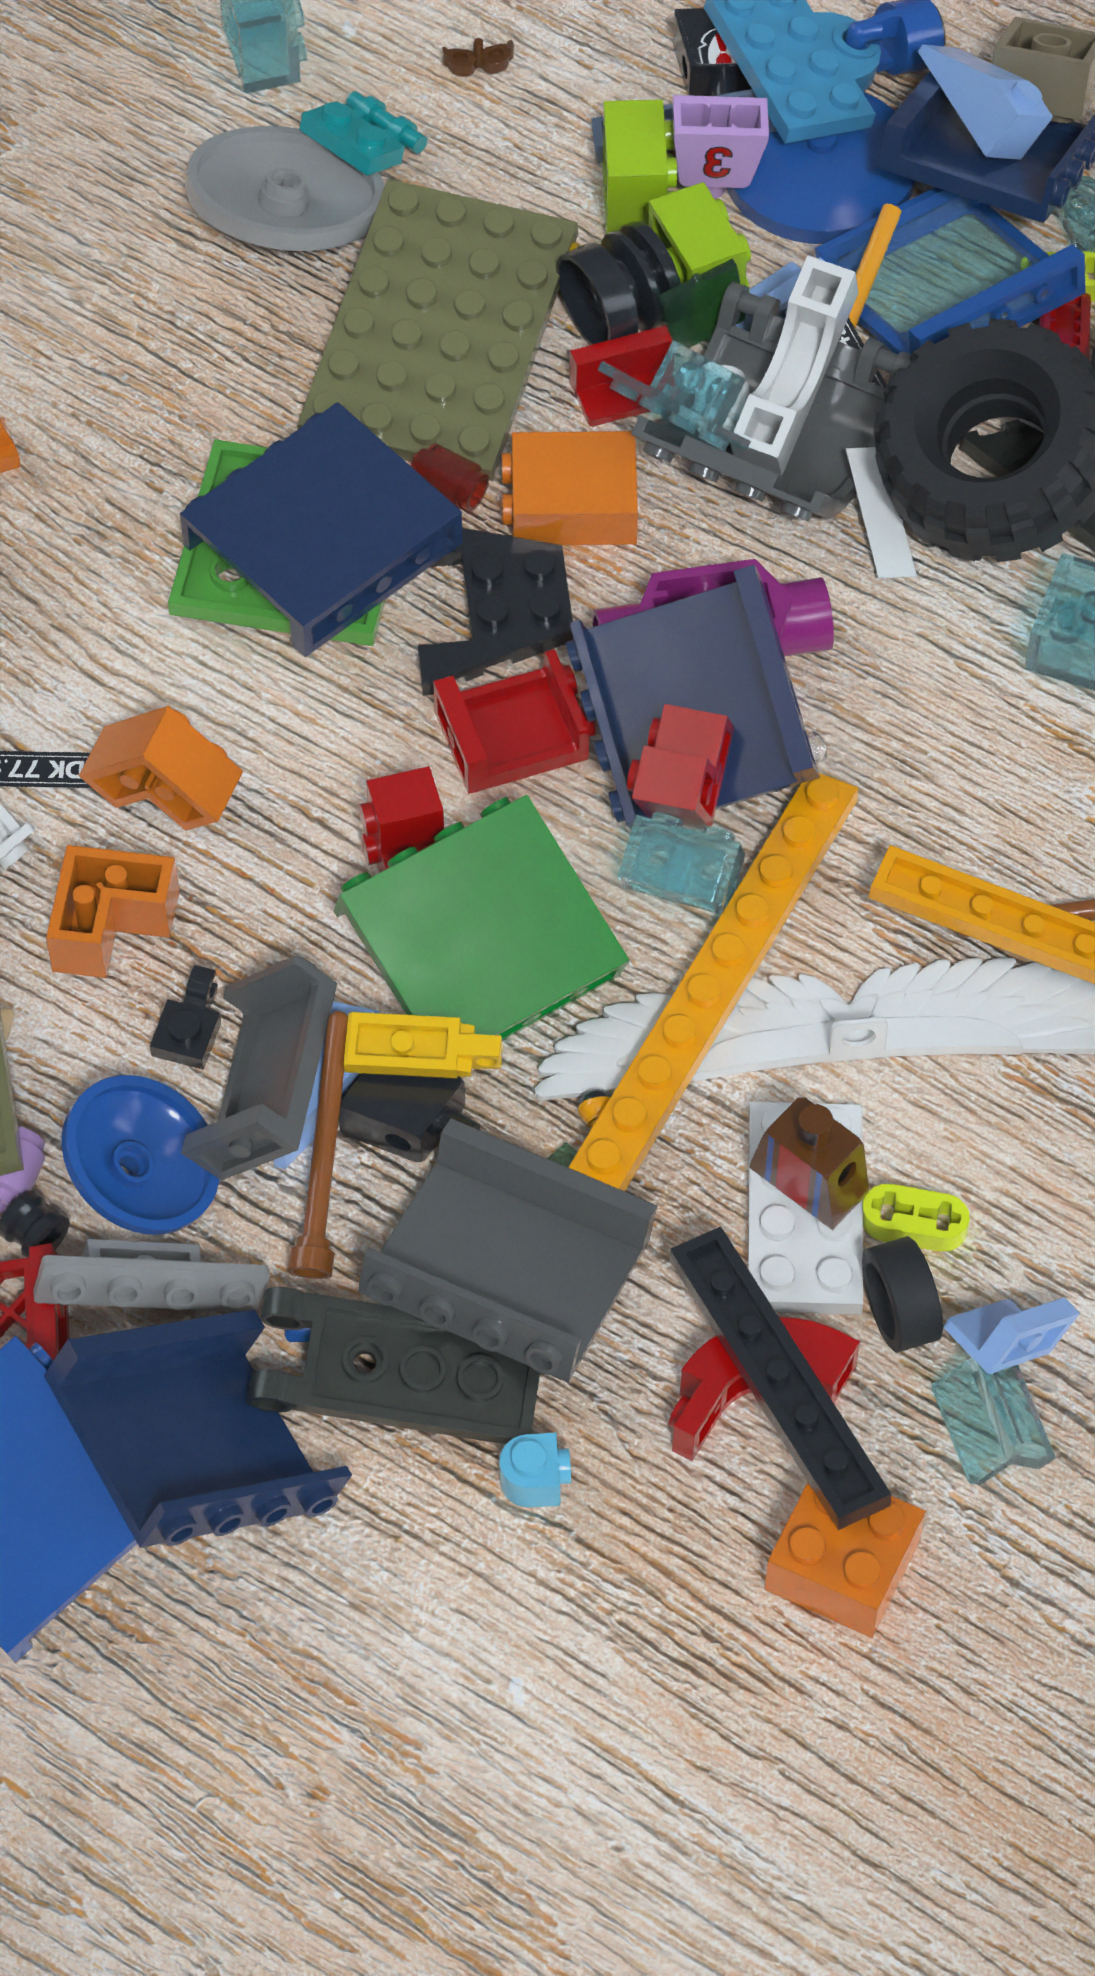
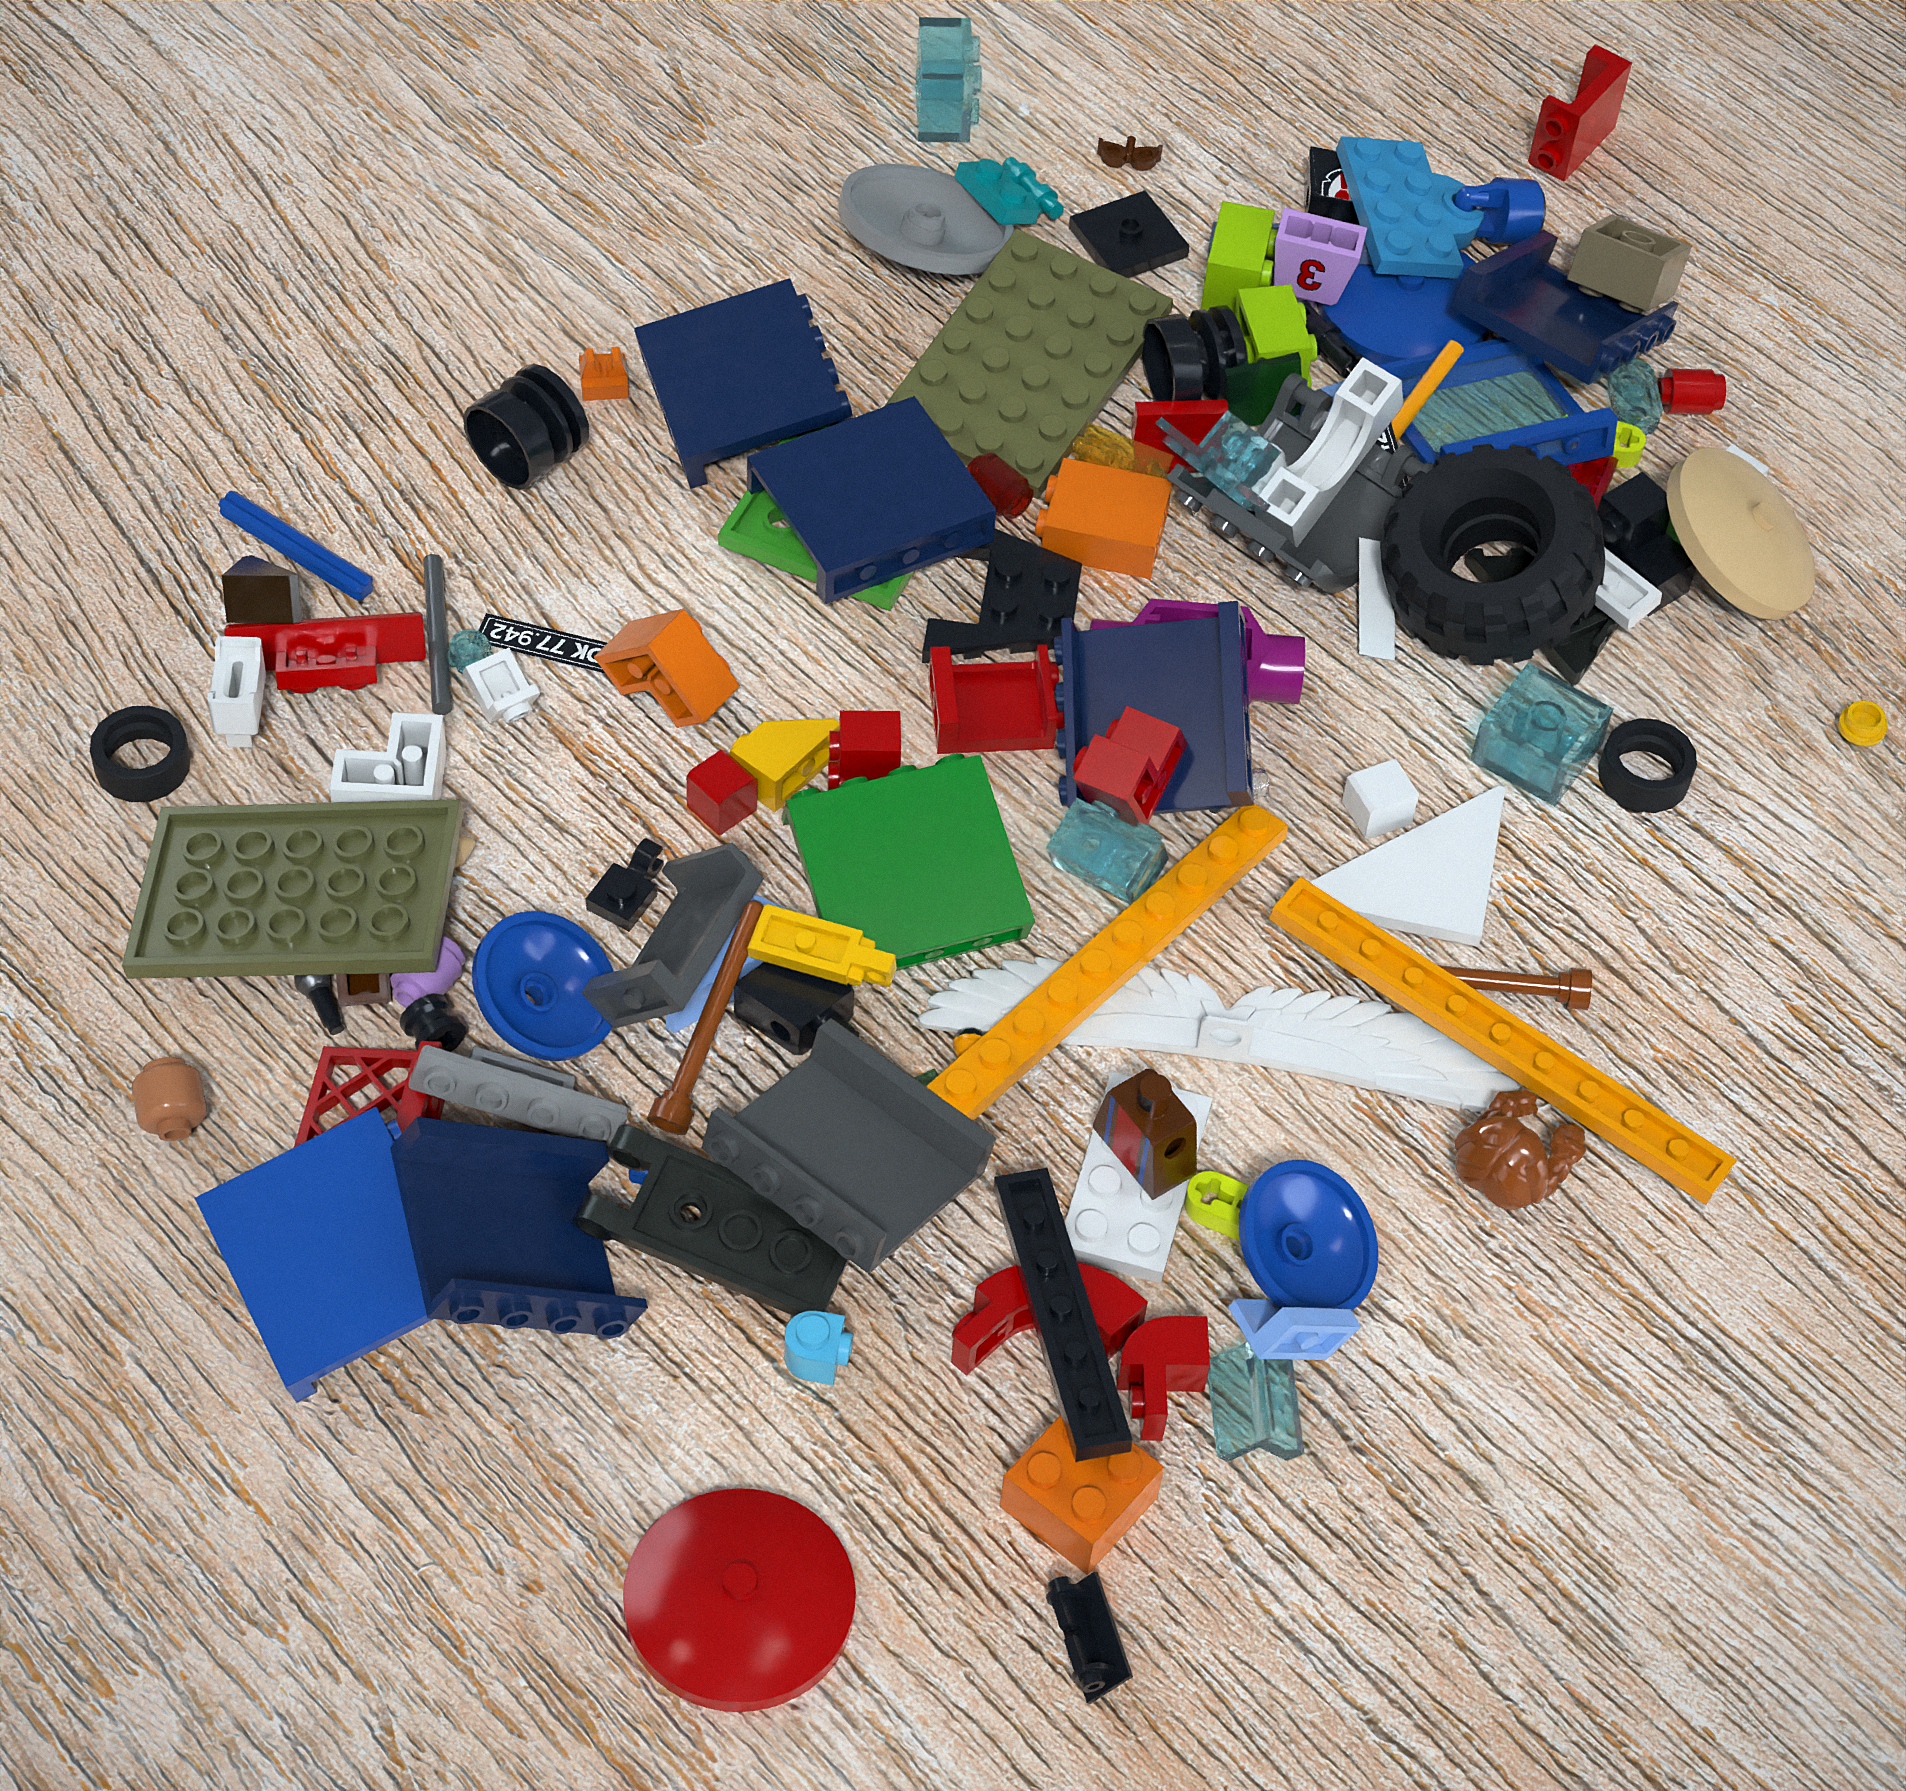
camera: 10 degrees right, 5 degrees down
(106, 895) = (584, 761): orange brick -> none
(139, 418) = (740, 375): none -> dark blue panel
(258, 894) = (721, 792): none -> red piece
(309, 840) = (784, 756): none -> yellow slope
(505, 154) = (1129, 235): none -> black plate
(532, 1753) = (739, 1600): none -> red dish
(568, 411) = (1120, 452): none -> clear yellow hinge
(758, 233) = (1330, 342): none -> black pin
(883, 1397) = (1160, 1358): none -> red brick
(896, 1701) = (1089, 1635): none -> black hinge
(902, 1294) = (1200, 1268): black tyre -> none
(945, 736) = (1380, 798): none -> white piece
(994, 104) = (1571, 279): light blue slope -> none
(1002, 1233) = (1325, 1229): none -> blue dish
(1016, 809) = (1429, 877): none -> white tile

